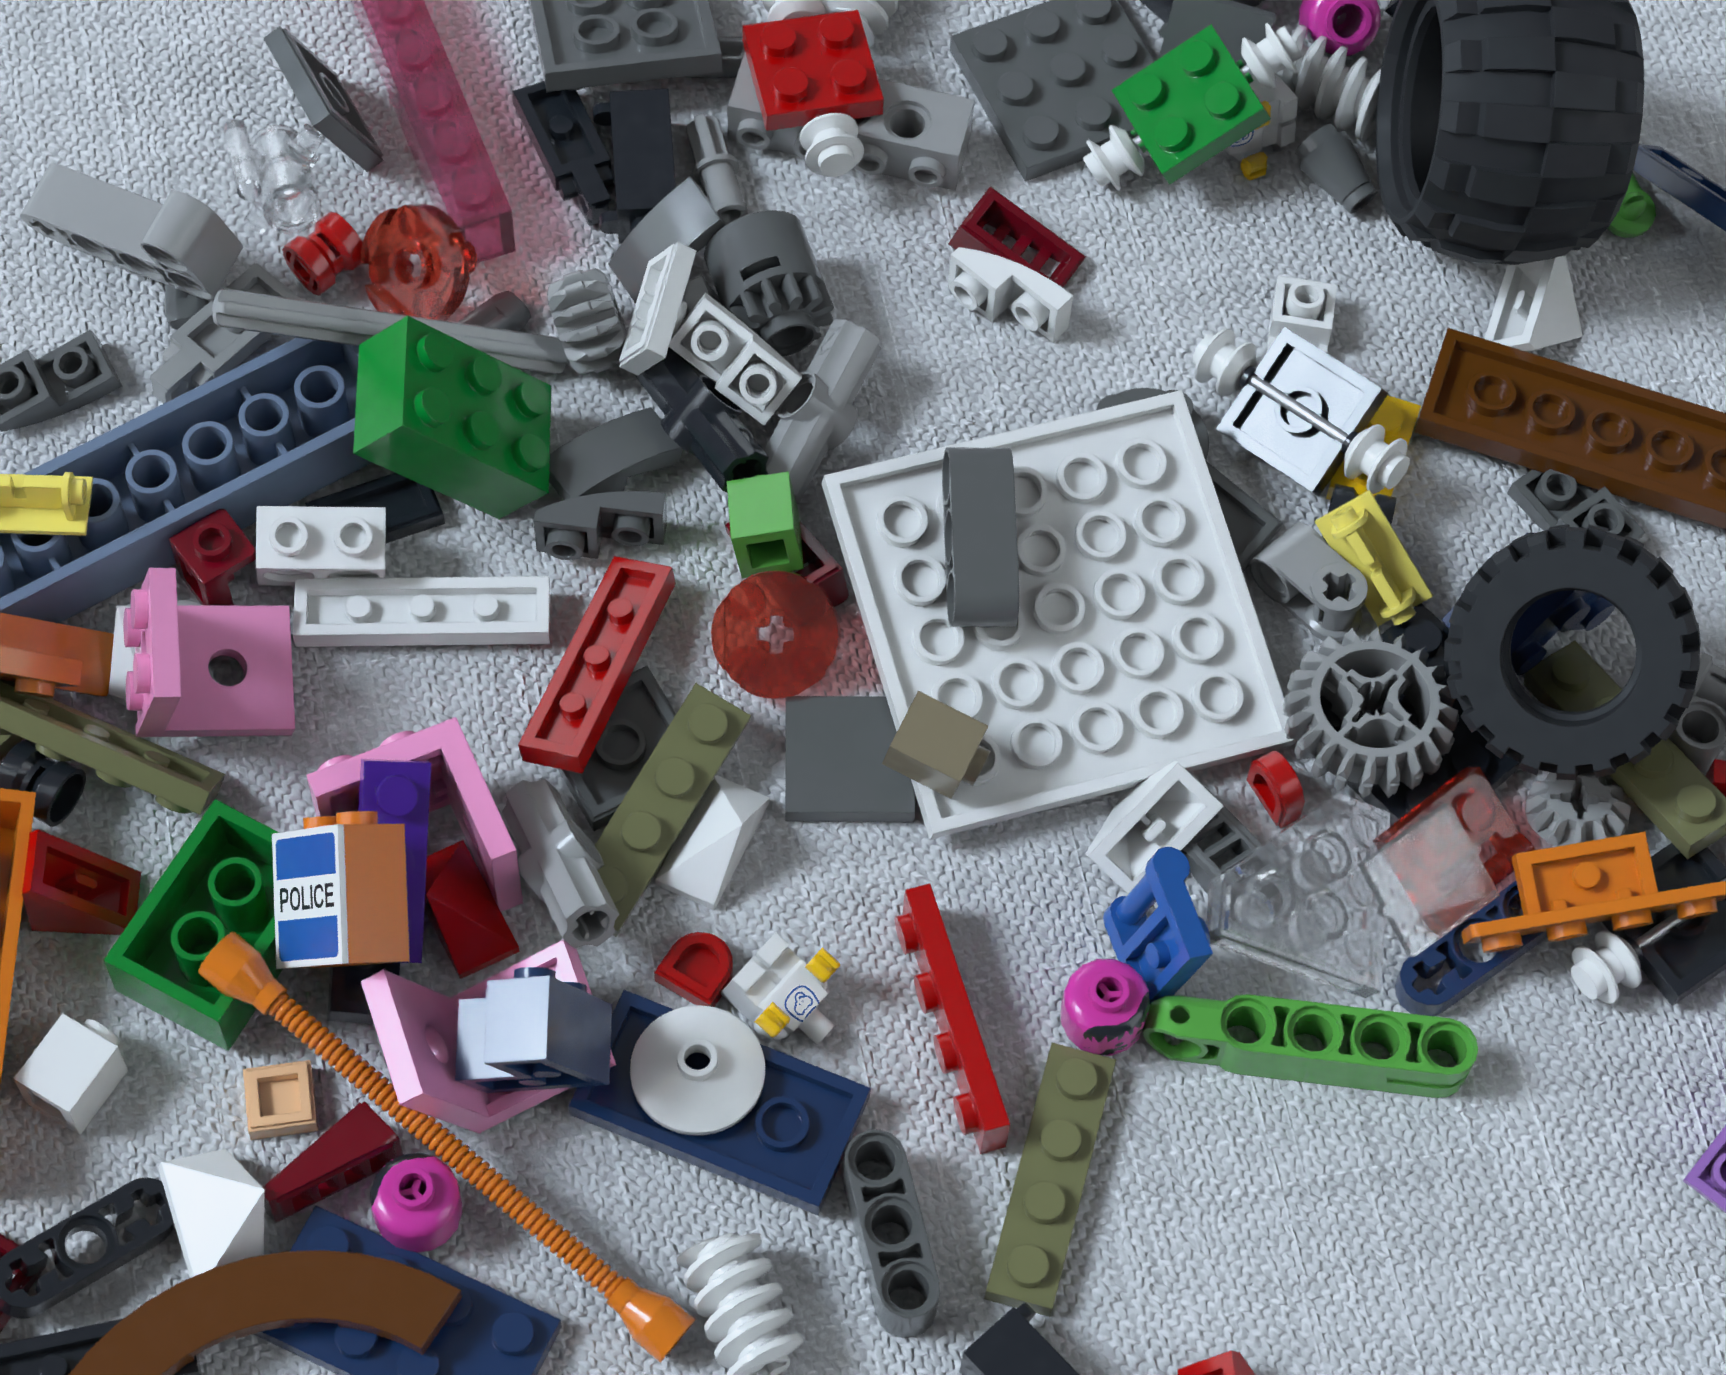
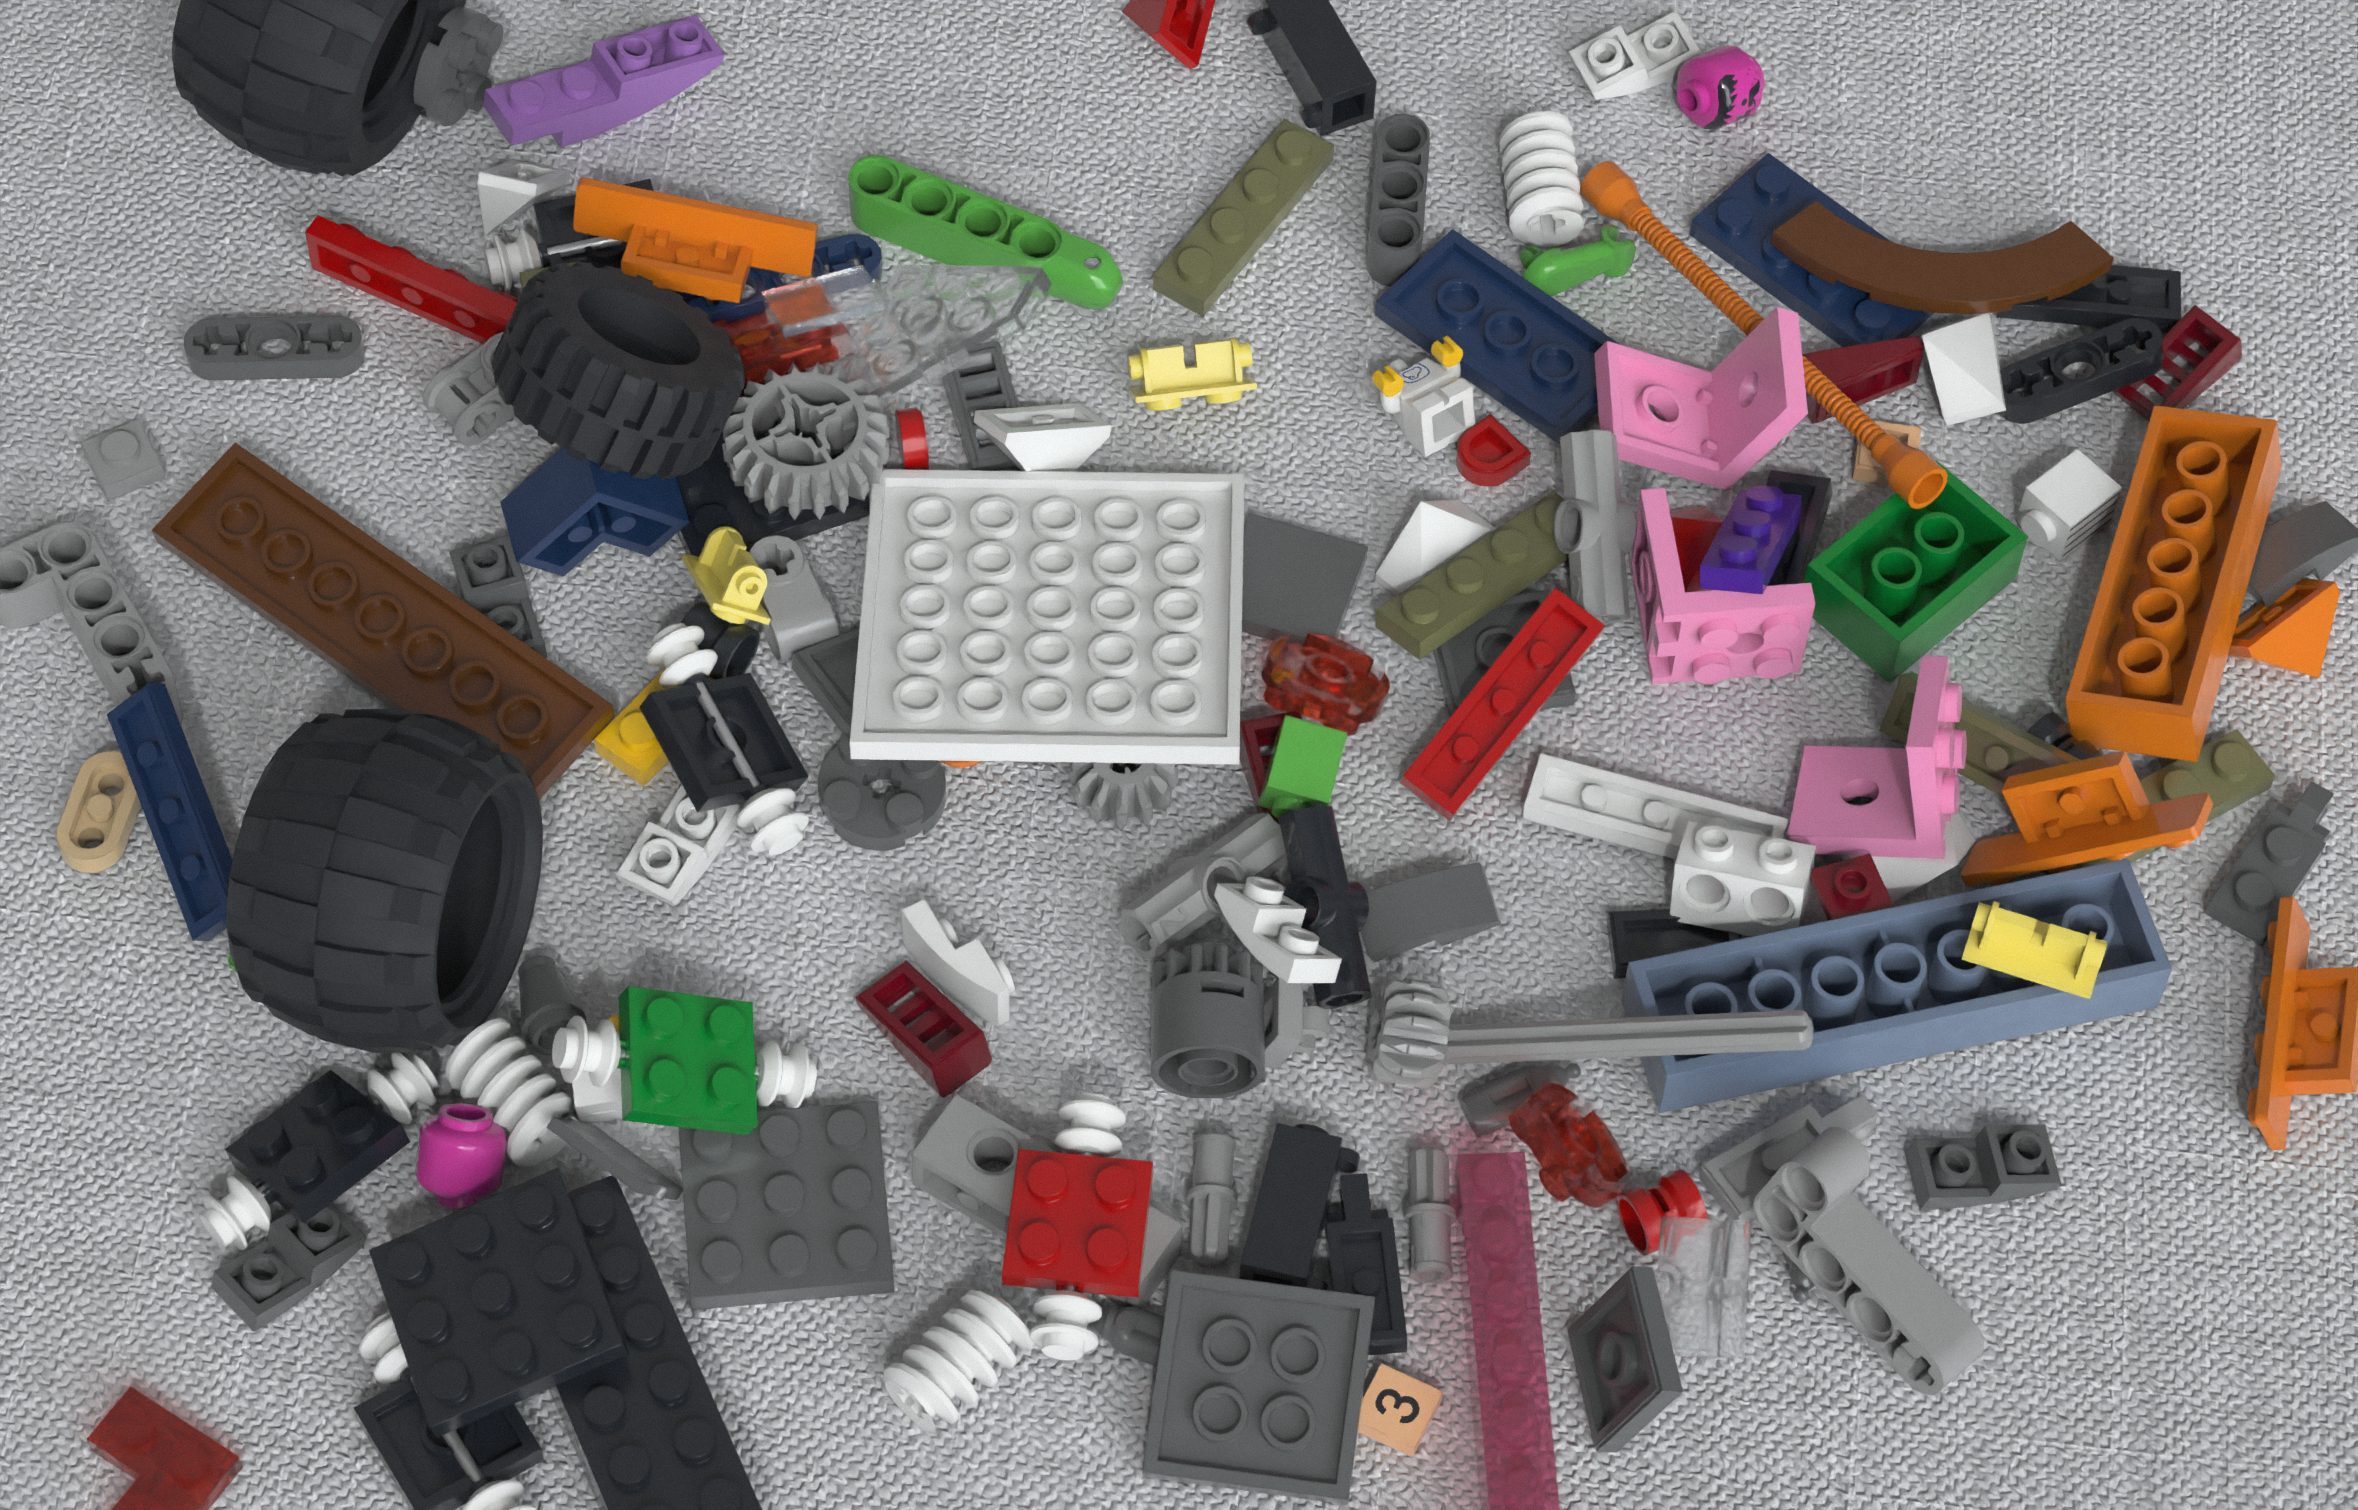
camera: 160 degrees left, 5 degrees down
(76, 888) = (2034, 639): red slope -> none
(340, 892) = (1809, 486): piece -> none
(416, 1202) = (1804, 297): dark pink head -> none
(452, 418) = (1584, 928): green brick -> none
(505, 57) = (1398, 1410): none -> light nougat tile
(526, 201) = (1430, 1216): none -> light grey axle
(533, 1035) = (1661, 348): dark blue brick -> none
(577, 524) = (1430, 846): dark grey slope -> none
(658, 309) = (1339, 990): white plate -> none
(679, 217) = (1297, 1092): slope -> none
(694, 1195) = (1561, 270): none -> bright green piece
(704, 1098) = (1518, 368): white dish -> none
(937, 746) = (1223, 504): dark tan brick -> none
(960, 1042) = (1285, 359): red plate -> none
(980, 537) = (1112, 644): dark grey beam -> none
(1026, 936) = (1167, 379): none -> light yellow hinge
(1105, 1007) = (1149, 300): dark pink head -> none
(1172, 939) = (1082, 326): blue plate -> none

